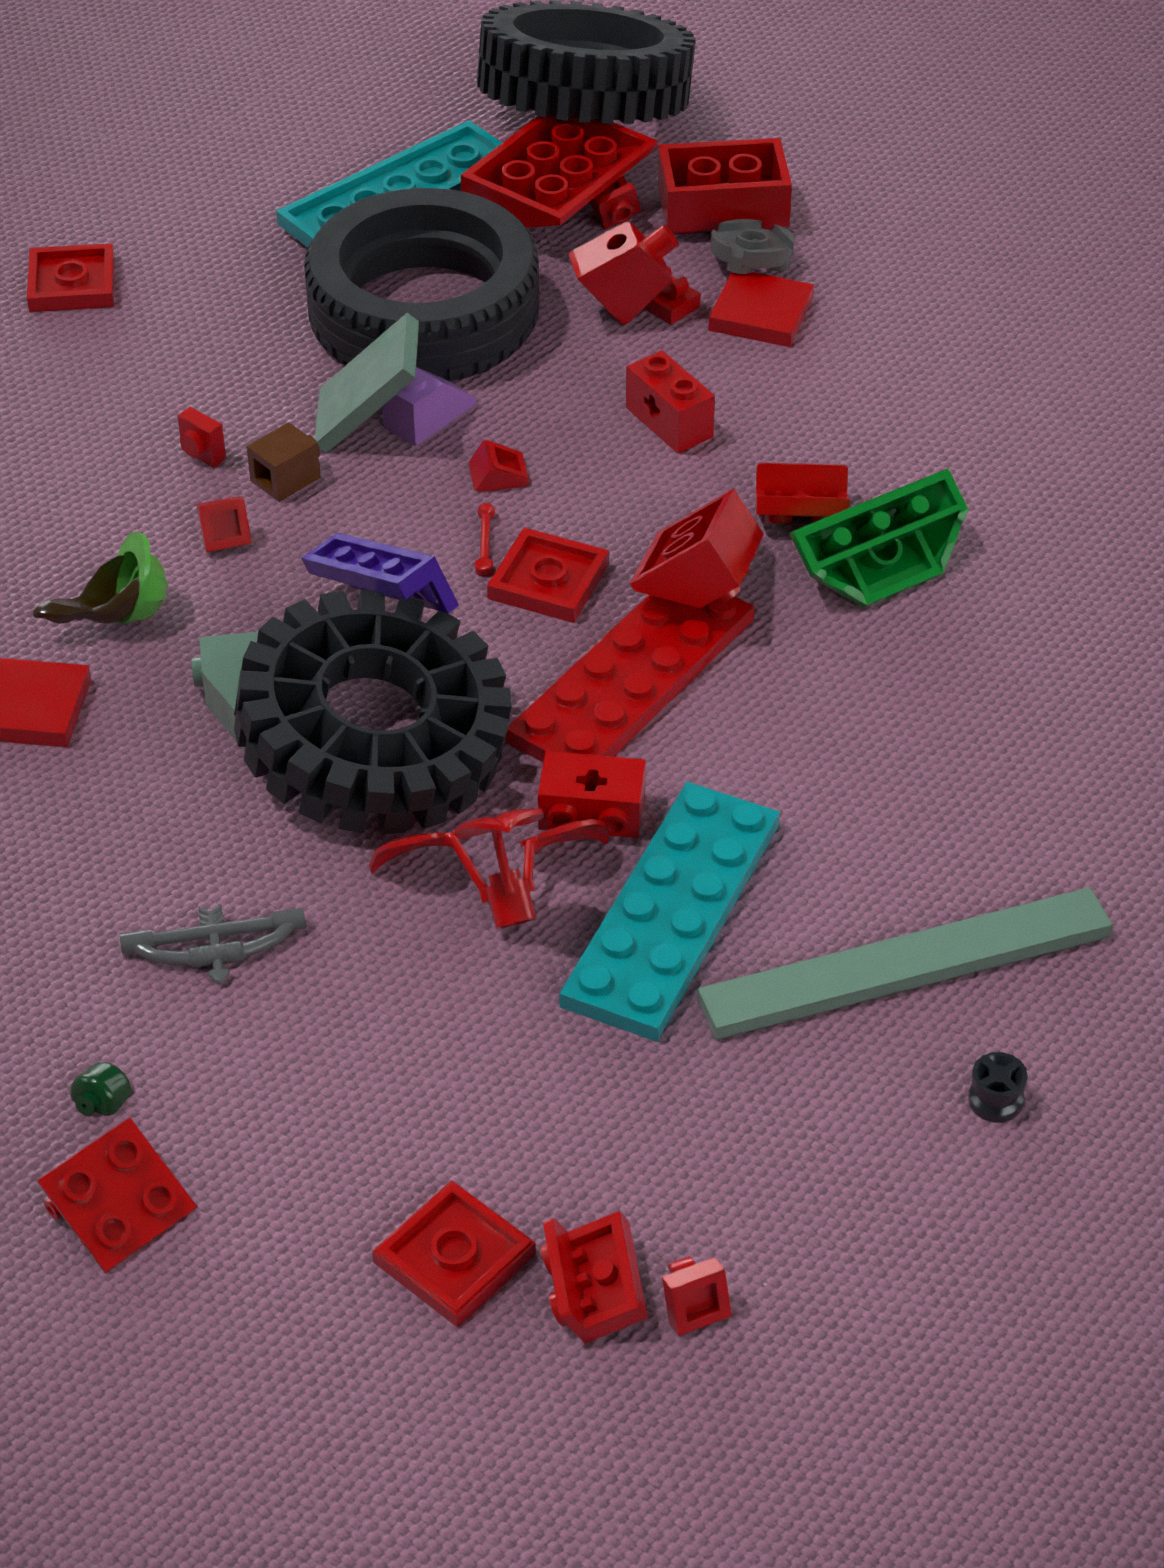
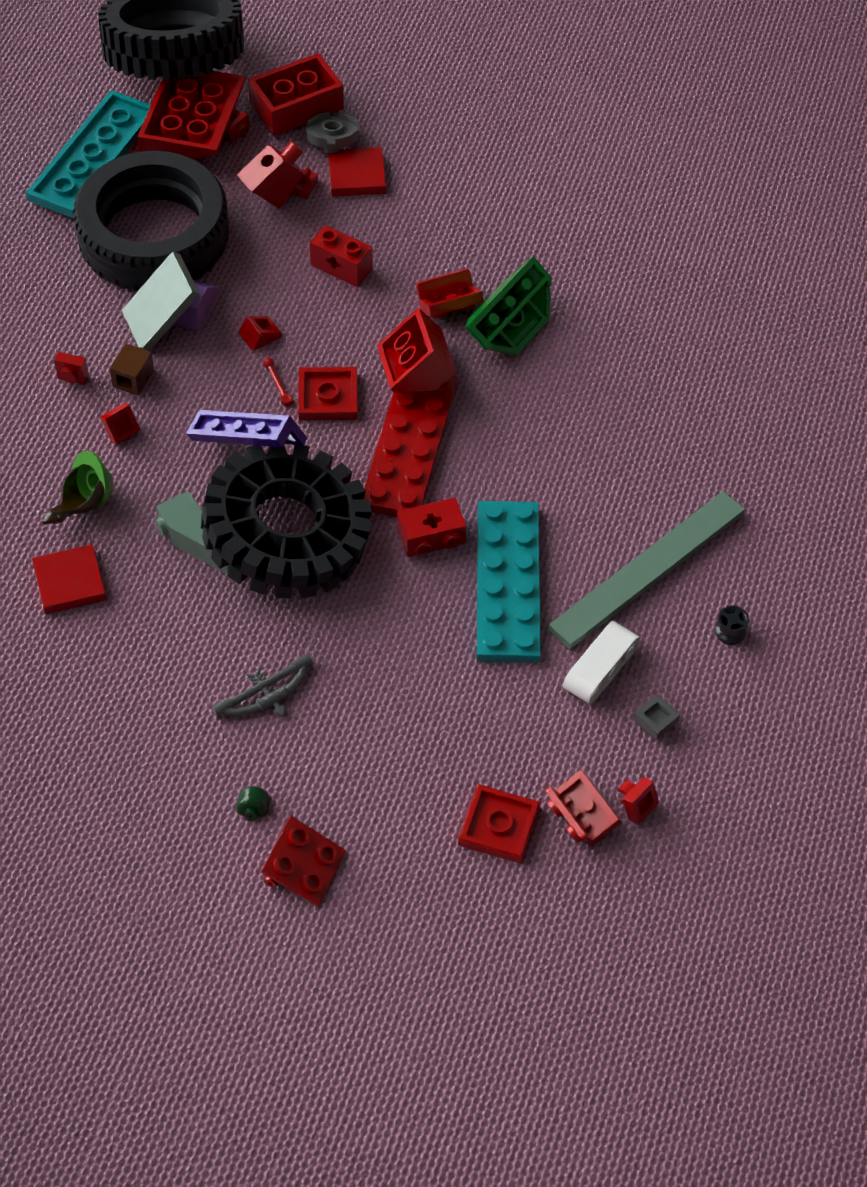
camera: 25 degrees left, 10 degrees up
(507, 892) = (419, 603): red plant -> none
(750, 1070) = (601, 662): none -> white beam
(795, 1181) = (656, 717): none -> dark grey plate

